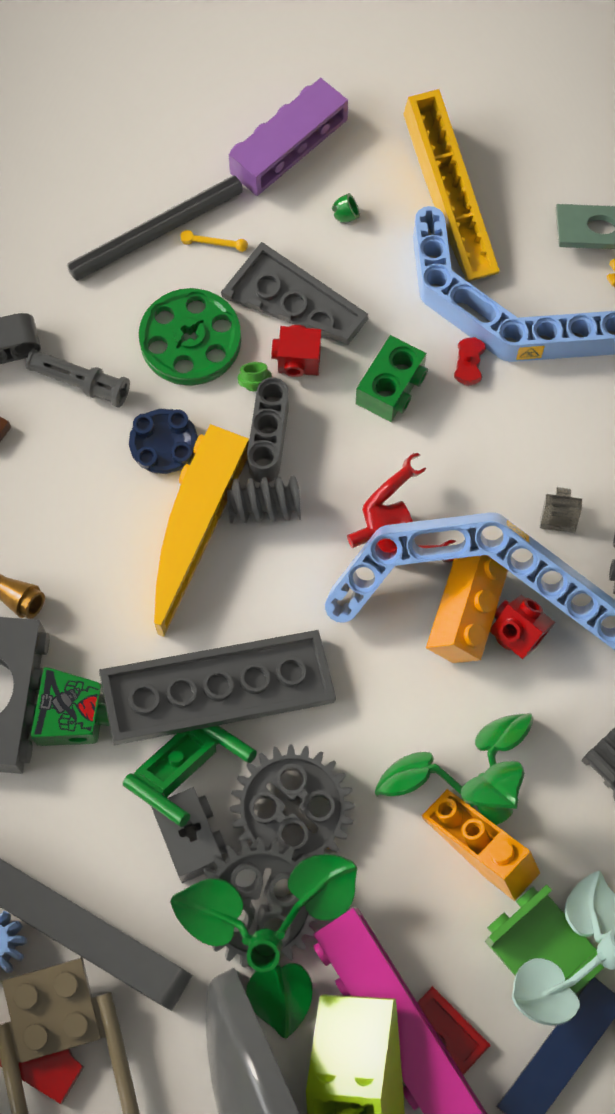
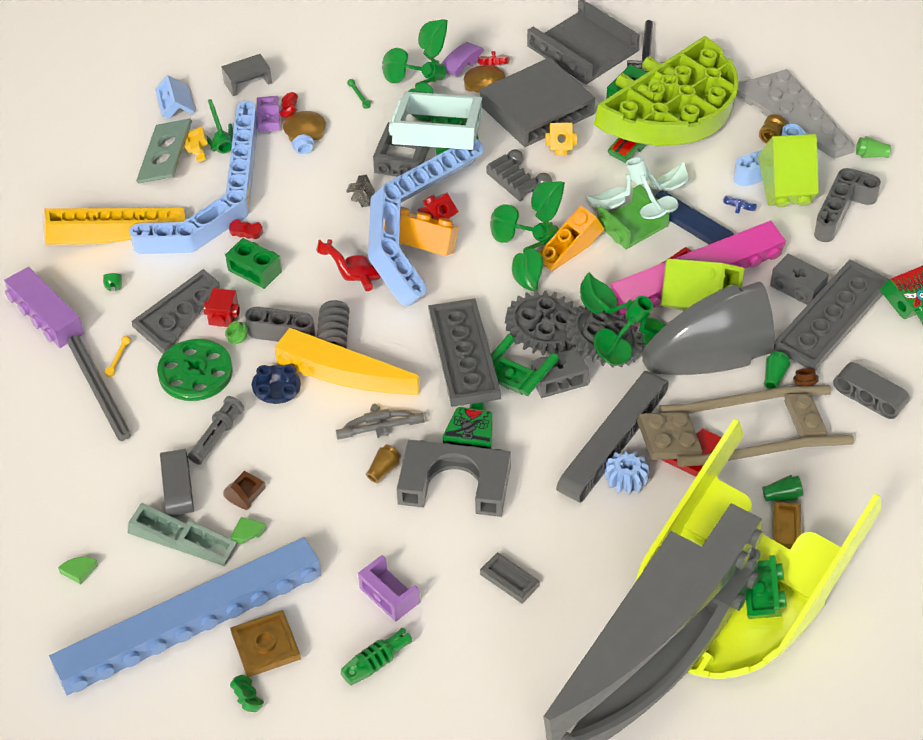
camera: 85 degrees left, 20 degrees down
(109, 580) = (380, 427): none -> piece

